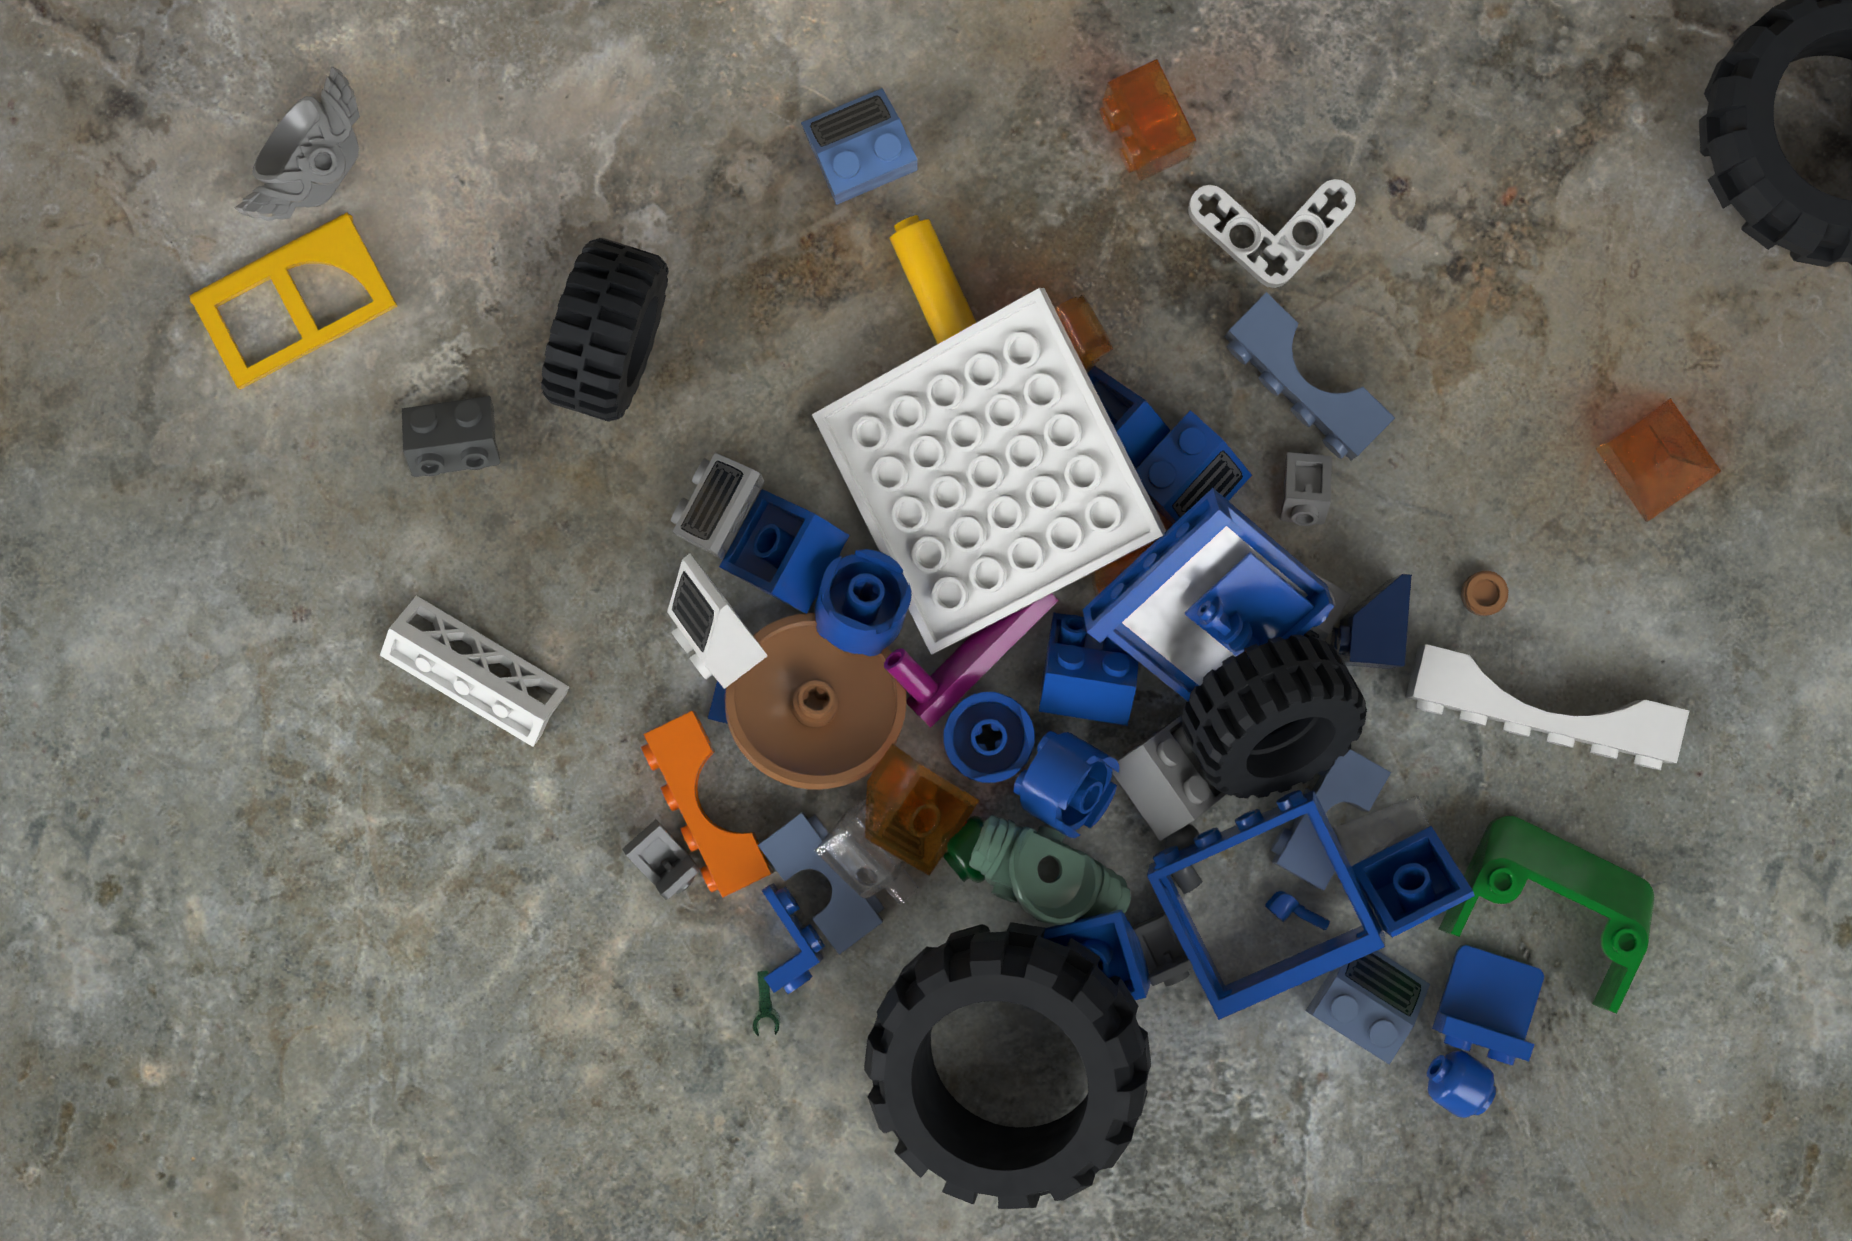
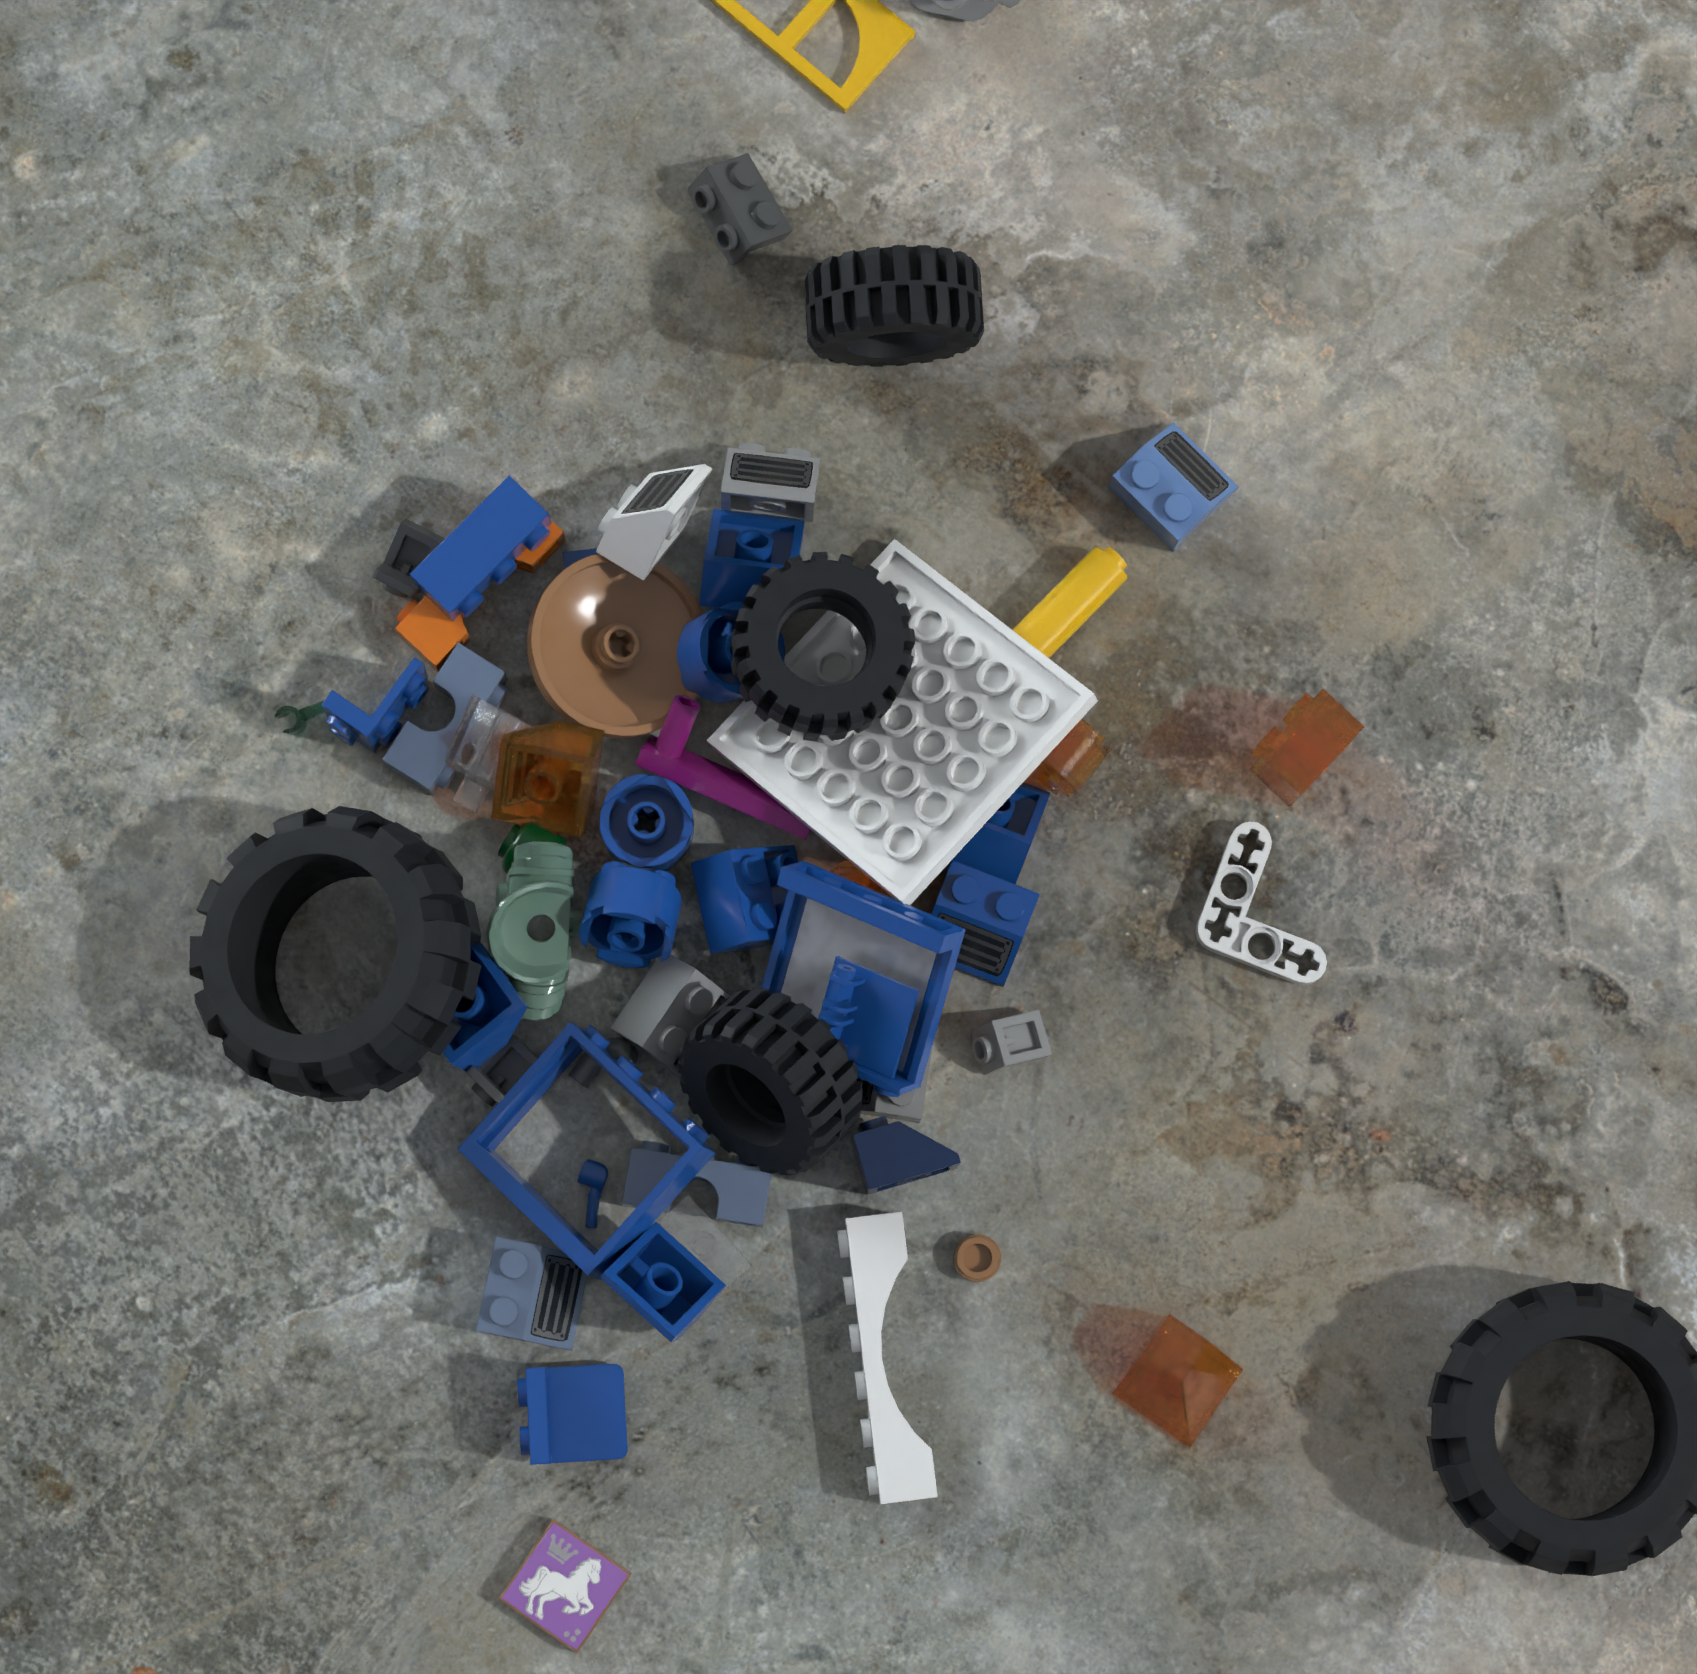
camera: 65 degrees right, 5 degrees down
(467, 676) = (515, 310): white fence -> none
(684, 791) = (482, 549): none -> blue brick
(889, 457) = (831, 587): none -> black tyre
(1266, 340) = (1141, 947): sand blue arch -> none
(1461, 1084) = (484, 1414): blue head -> none
(1520, 851) = (732, 1446): green windscreen -> none
(1635, 1068) = (565, 1586): none -> tile

